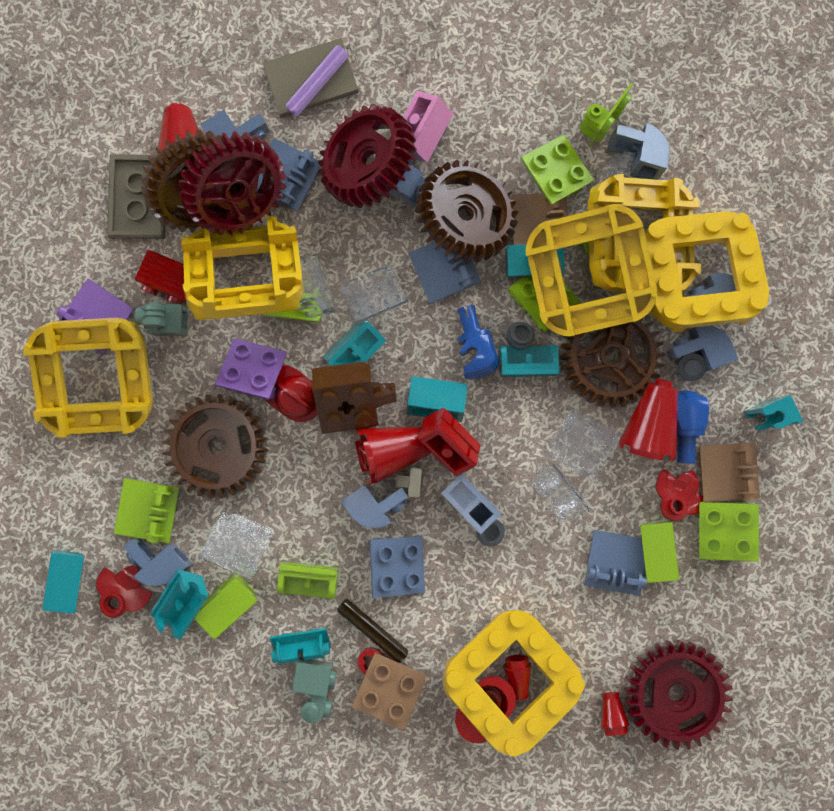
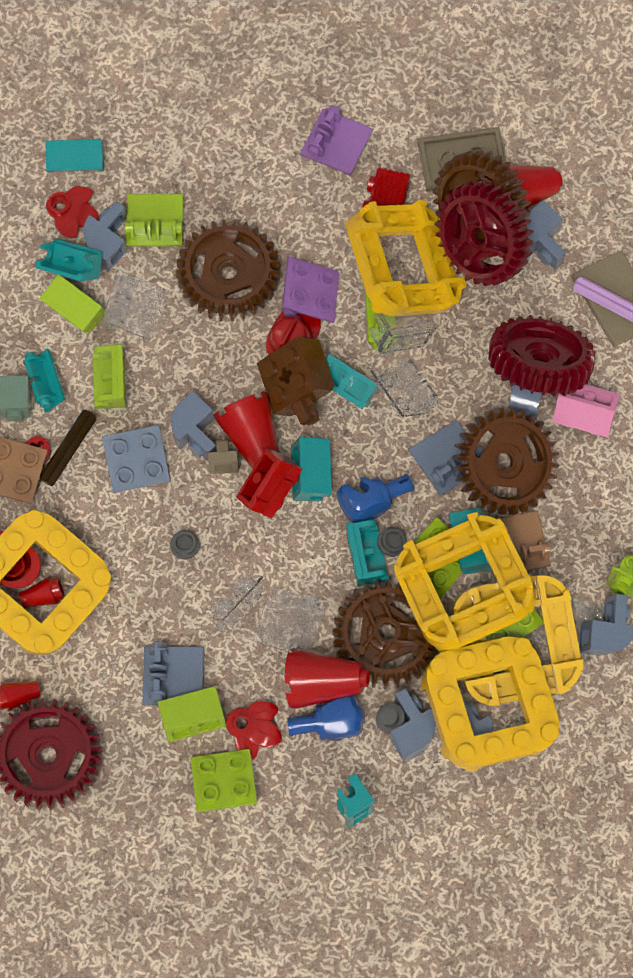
camera: 80 degrees right, 15 degrees down
(49, 382) = (261, 110): yellow plate -> none
(163, 319) = (343, 198): sand green brick -> none
(299, 171) = (516, 296): sand blue hinge -> none
(471, 503) = (208, 518): sand blue brick -> none
(557, 169) = (569, 546): lime hinge -> none
(729, 472) = (286, 776): medium nougat hinge -> none

